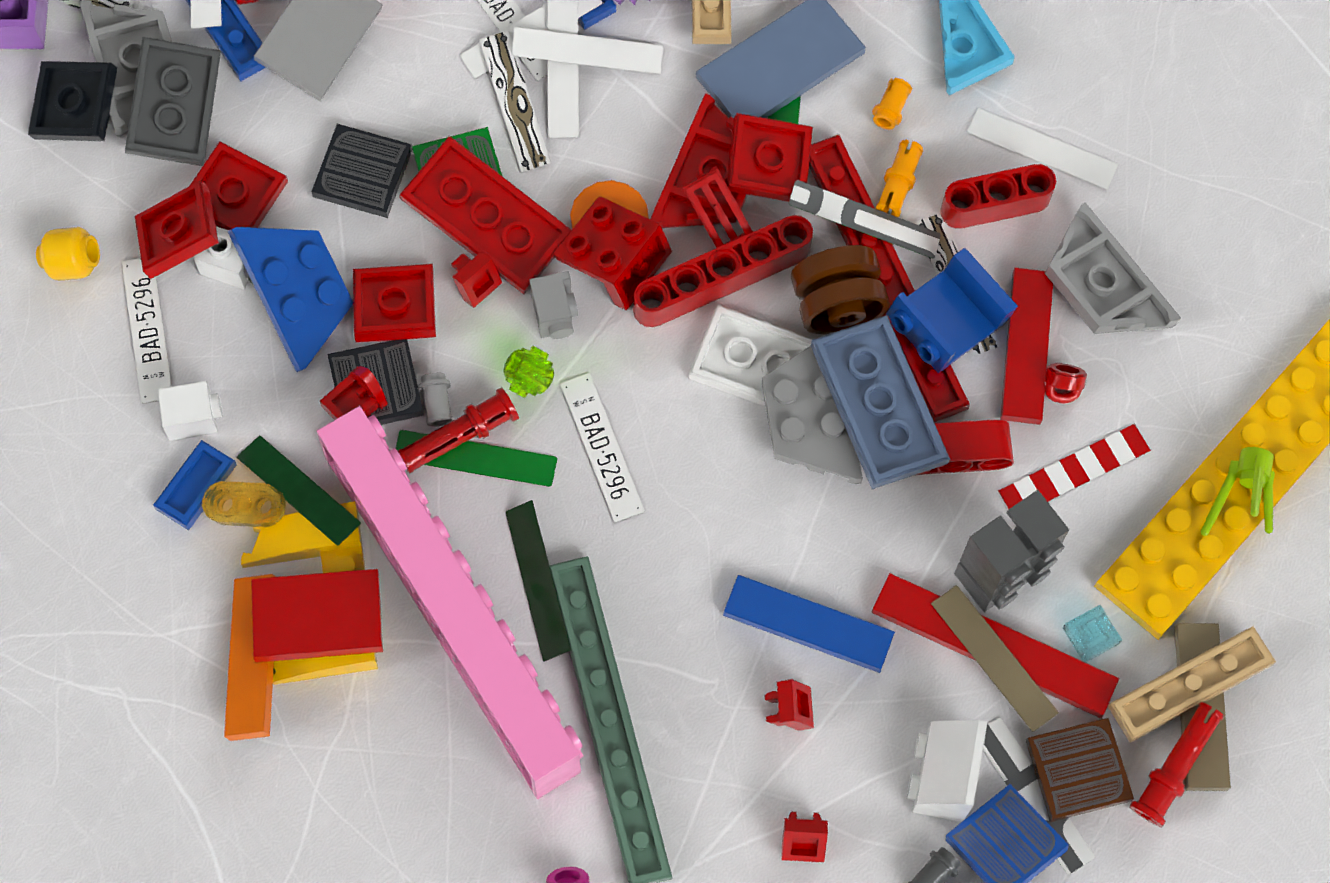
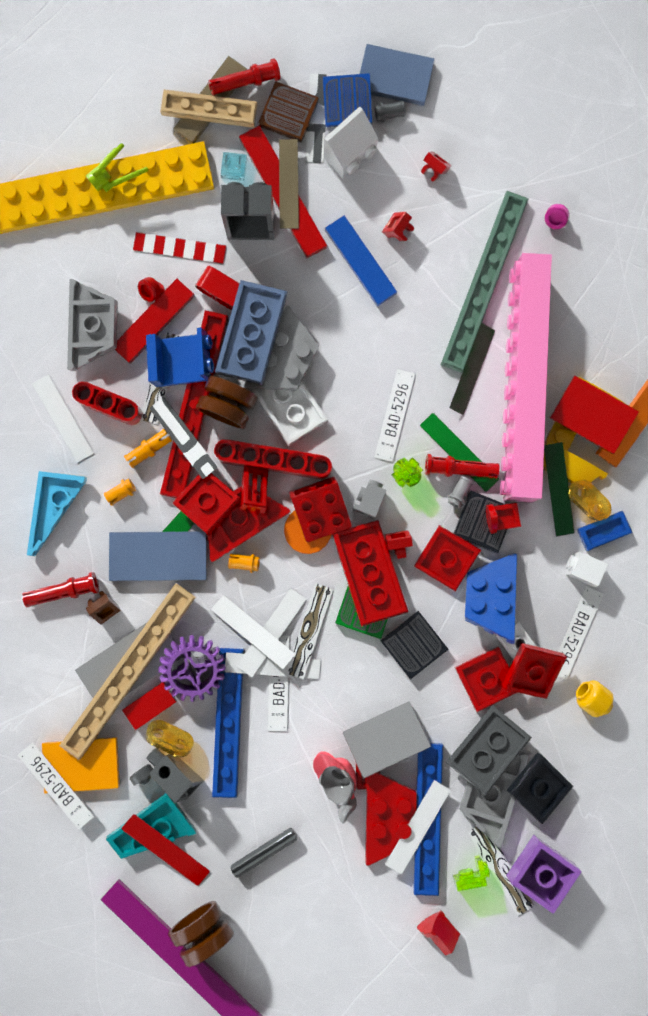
camera: 145 degrees left, 15 degrees up
(662, 123) = (244, 562): none -> light orange pin

